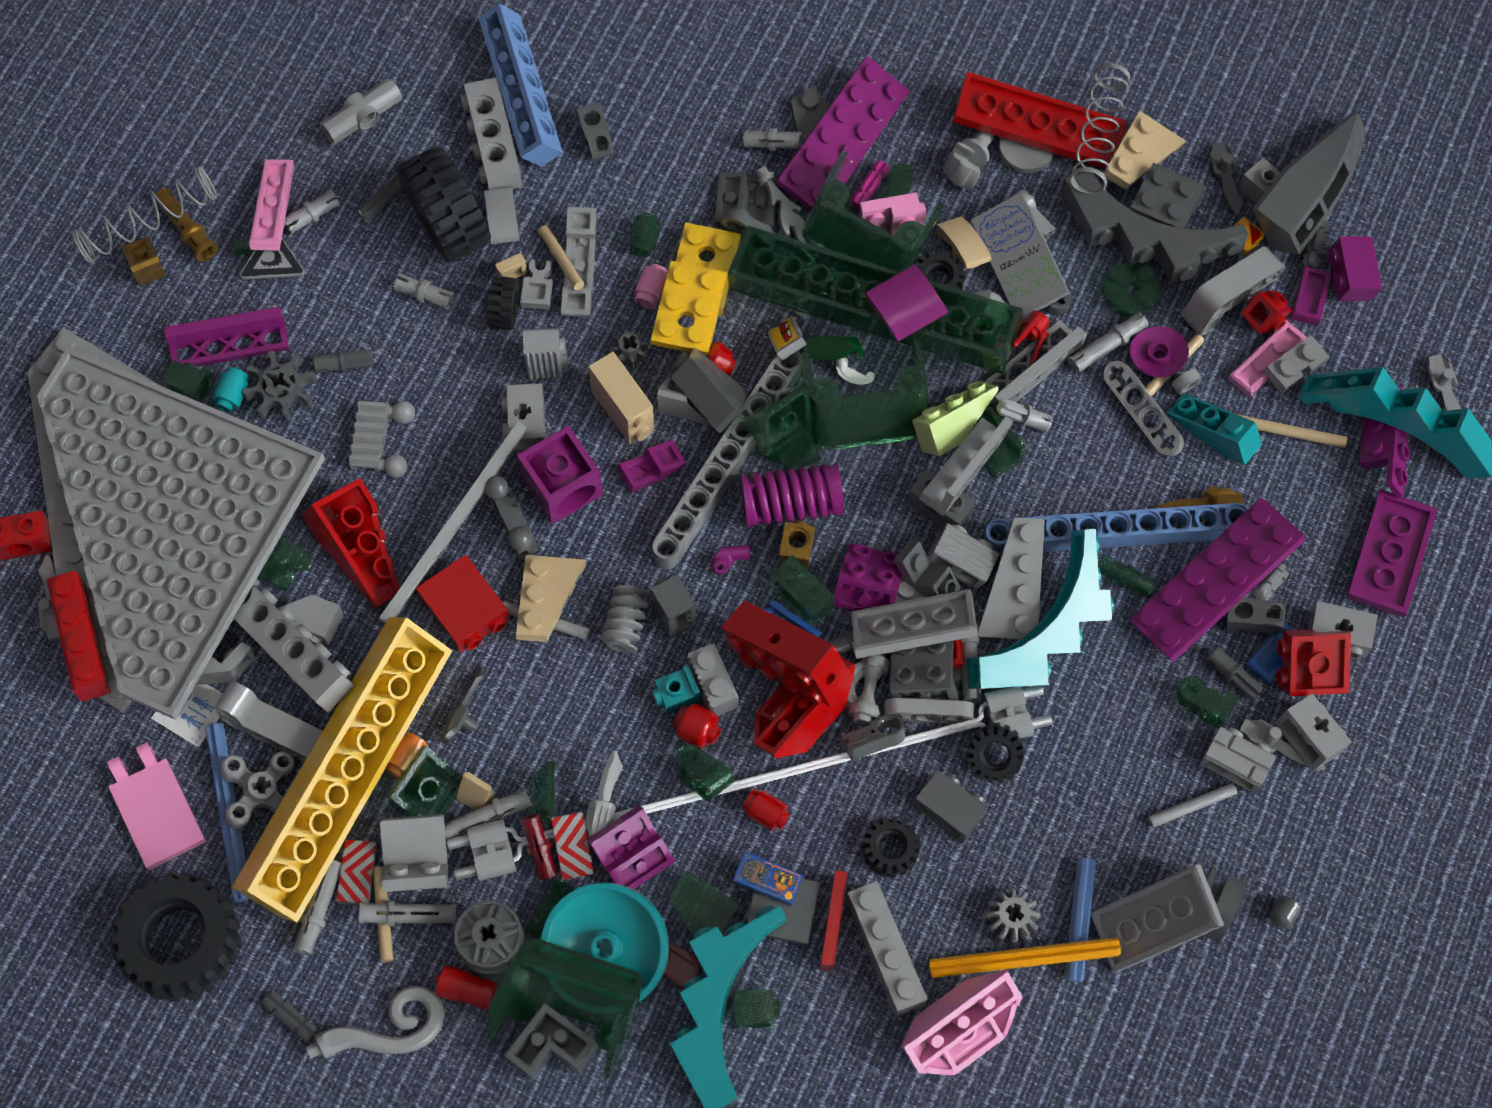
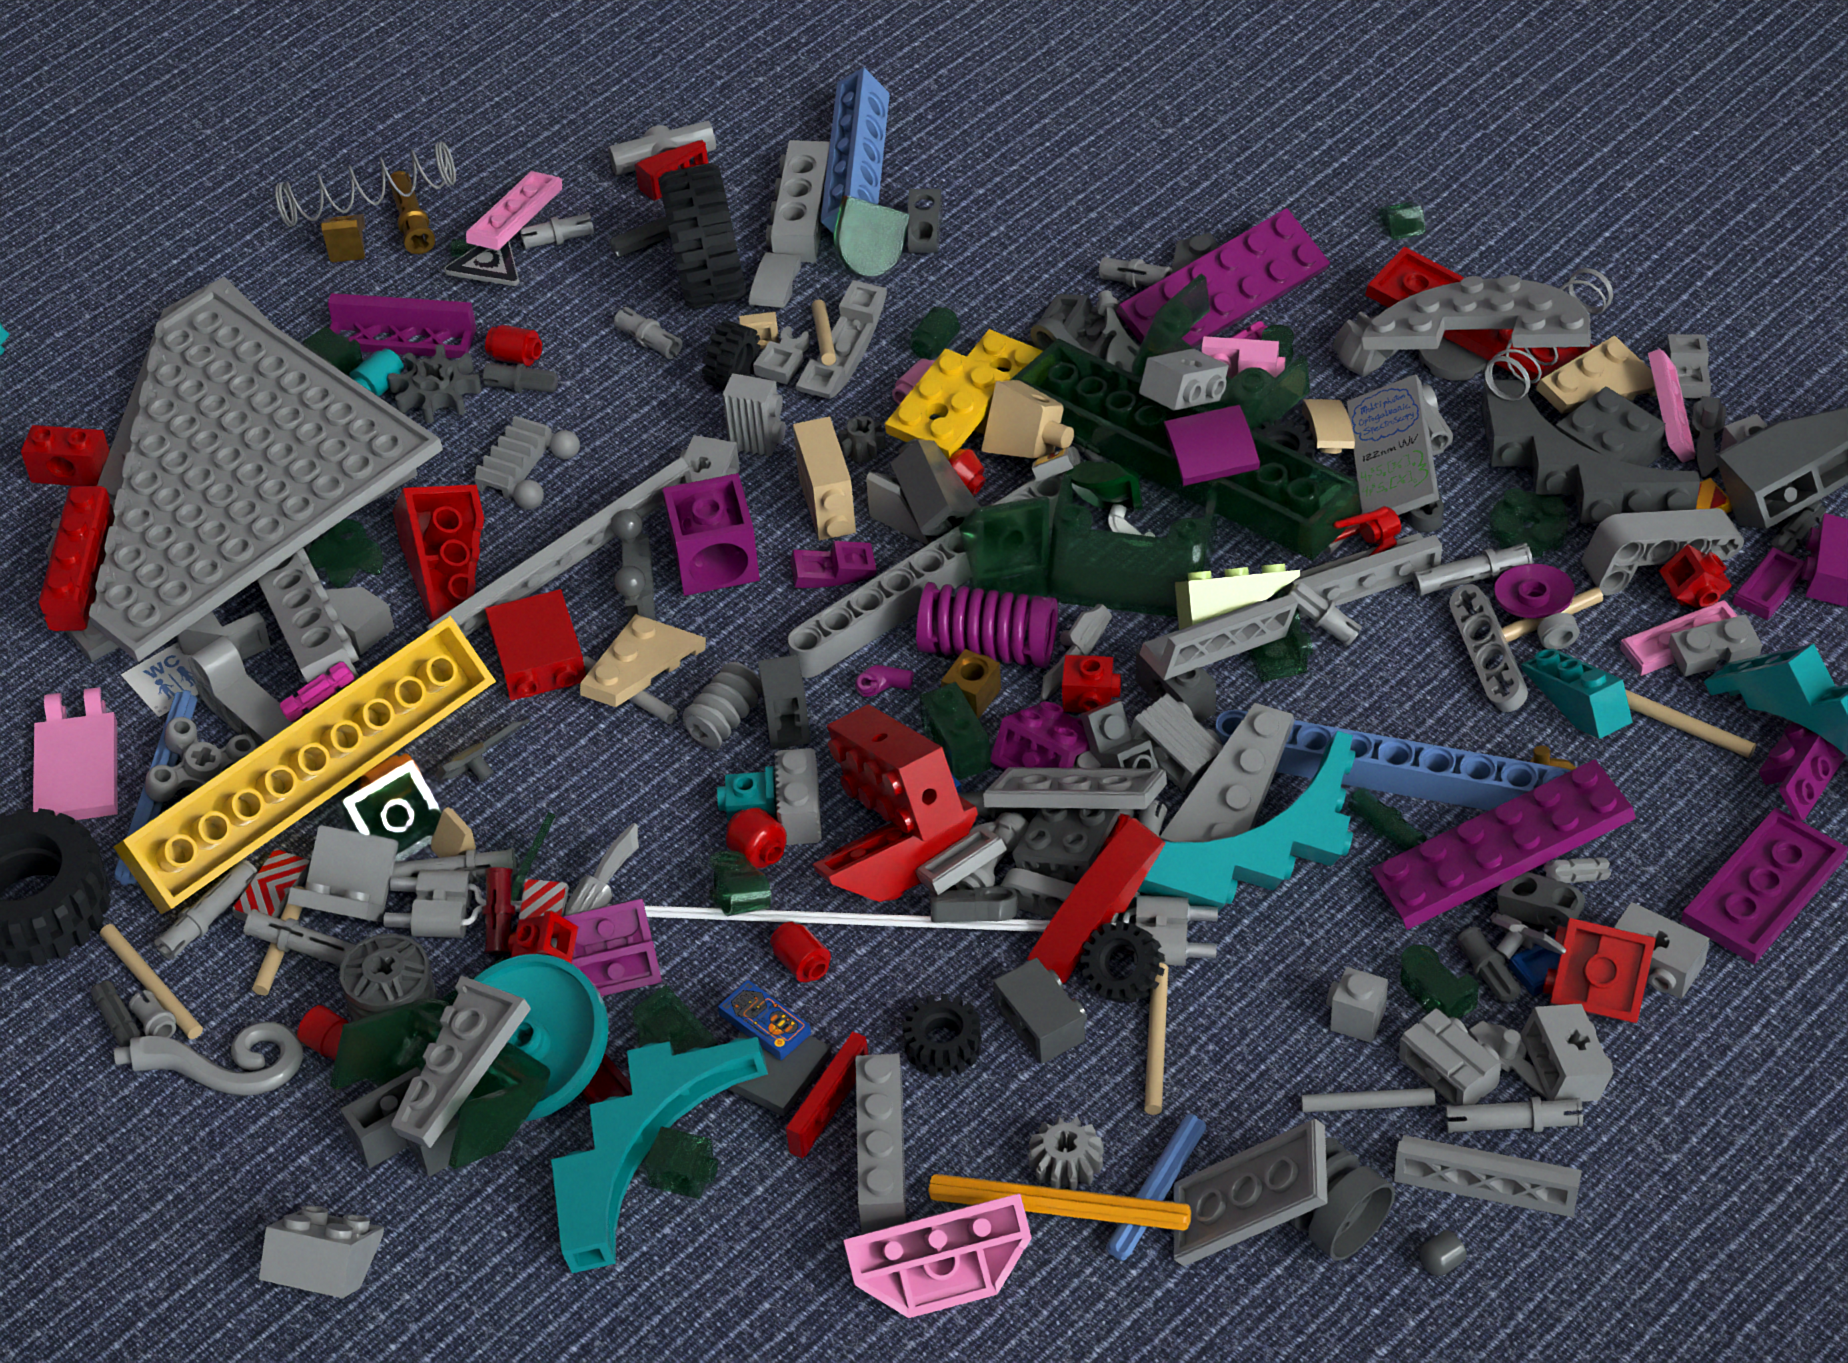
camera: 25 degrees right, 20 degrees down
(301, 979) = (150, 980): none -> tan bar
(319, 1010) = (152, 1015): none -> light grey pin
(325, 332) = (513, 344): none -> red brick
(331, 711) = (317, 692): none -> dark pink axle
(374, 134) = (653, 167): none -> red slope
(563, 161) = (869, 236): none -> clear green tile
(580, 977) = (466, 1047): none -> light grey wing
(587, 868) = (535, 936): none -> red brick
(752, 308) = (1024, 422): none -> tan torso
(854, 706) = (960, 860): none -> light grey tile
(859, 483) = (1082, 639): none -> light grey piece
(864, 249) = (1184, 379): none -> light grey brick
(882, 523) = (1088, 682): none -> red brick
(946, 34) = (1403, 220): none -> clear green slope
(965, 714) = (1097, 897): none -> red slope
(1038, 810) = (1156, 1045): none -> tan bar
(1054, 118) = (1534, 311): none -> light grey plate
(1163, 735) = (1357, 1004): none -> light grey brick
(1193, 119) = (1690, 357): none -> light grey slope
(1199, 162) = (1672, 405): none -> bright pink tile
(1250, 646) = (1519, 934): none -> light grey piece
(1291, 839) = (1487, 1175): none -> light grey fence
(1303, 785) = (1515, 1115): none -> light grey pin

